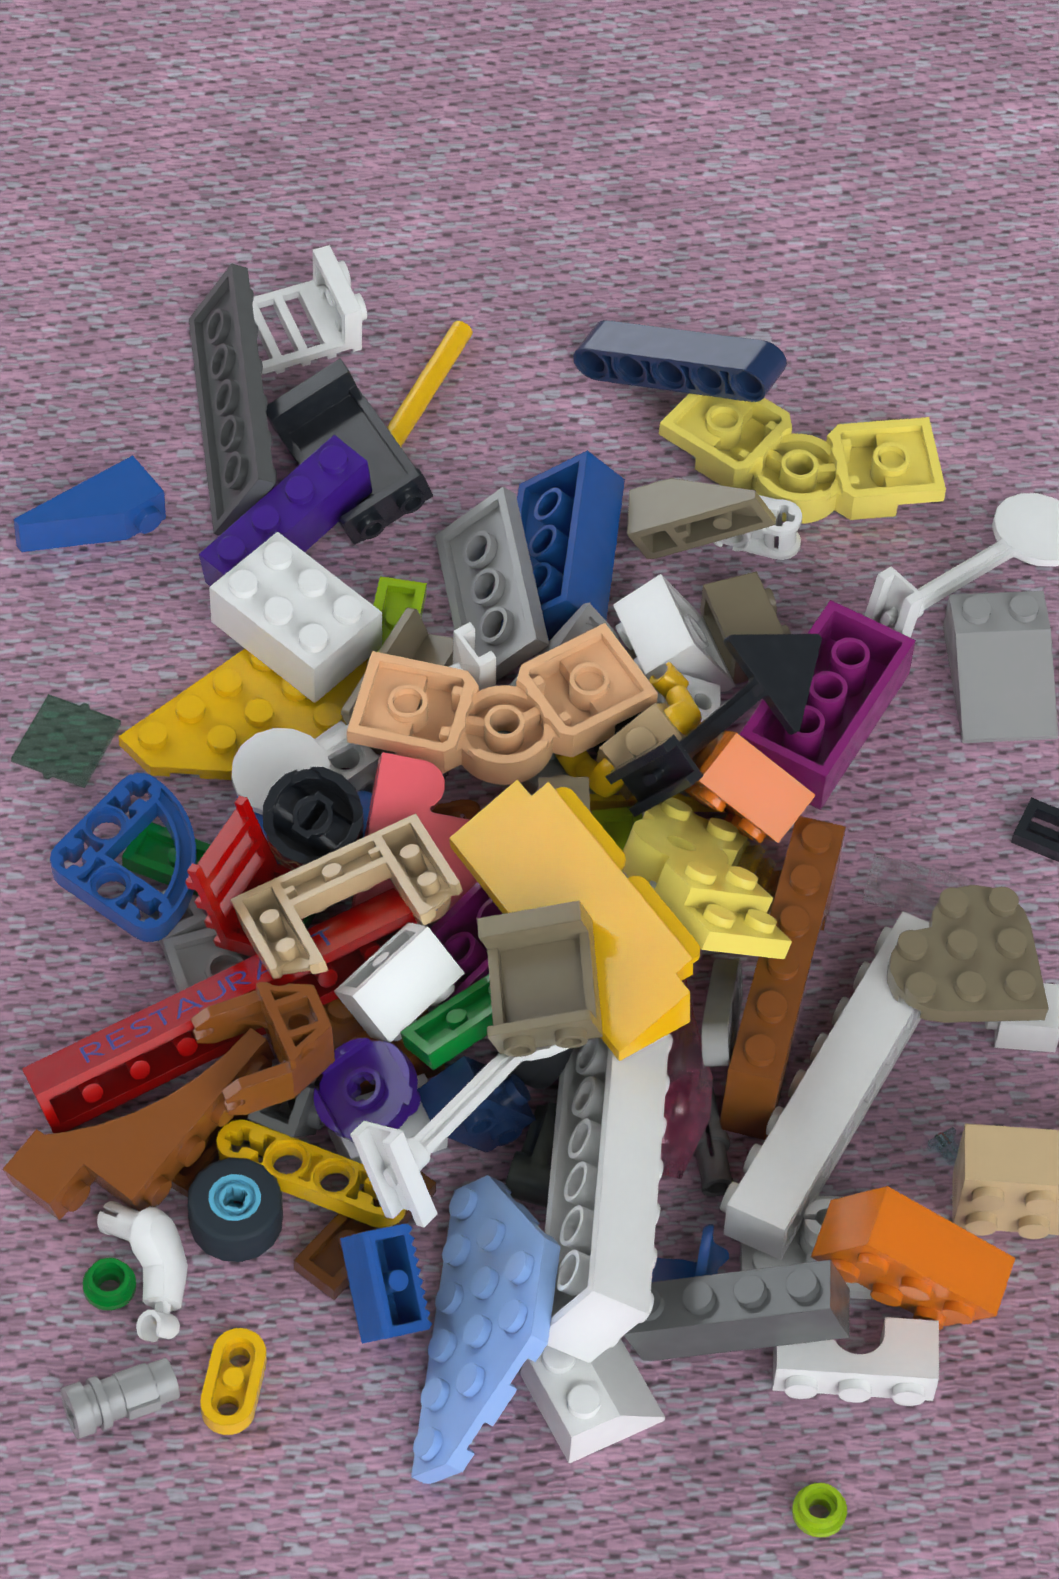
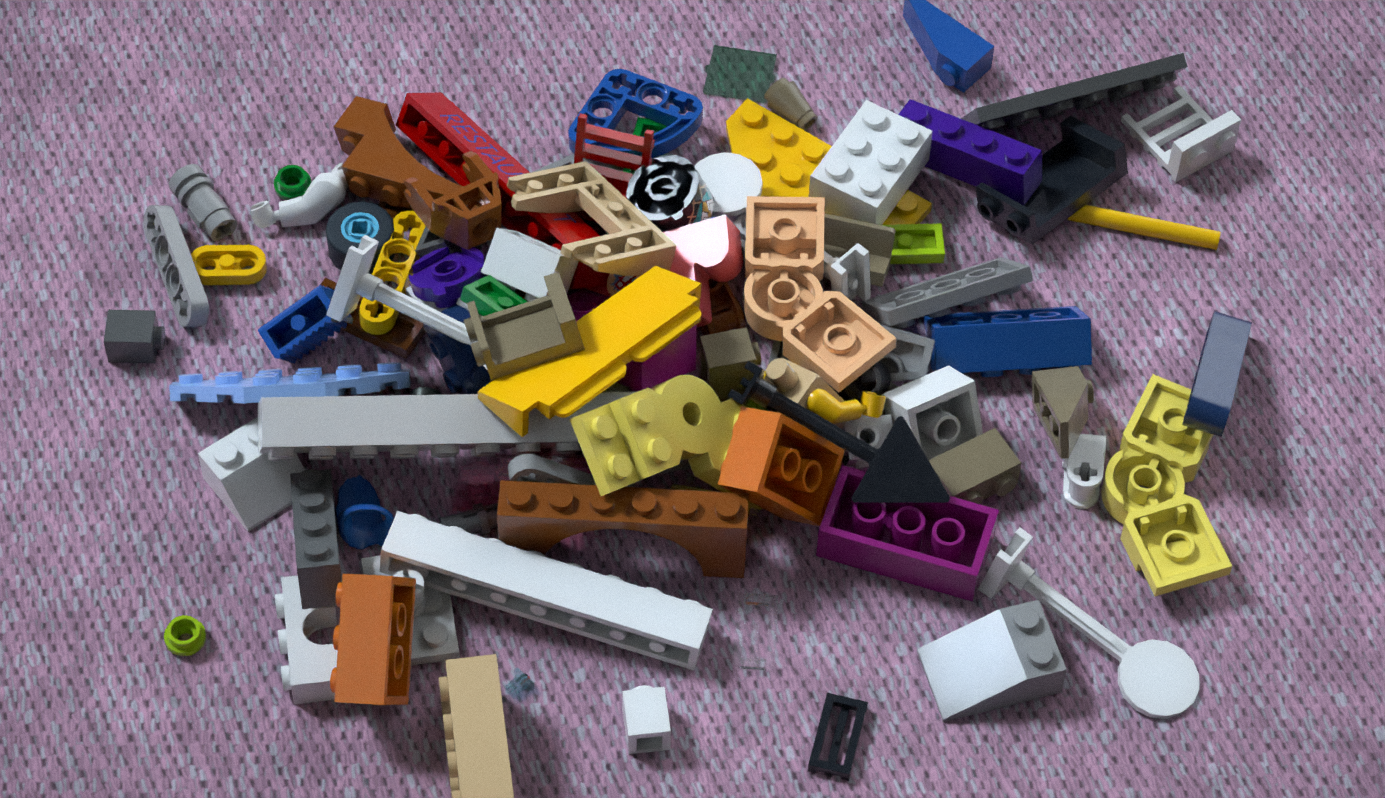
camera: 80 degrees right, 0 degrees up
(142, 692) = (789, 103): none -> dark tan cone
(223, 1452) = (176, 266): none -> light grey beam
(333, 1512) = (133, 336): none -> dark grey brick
(971, 960) = (667, 658): dark tan plate -> none

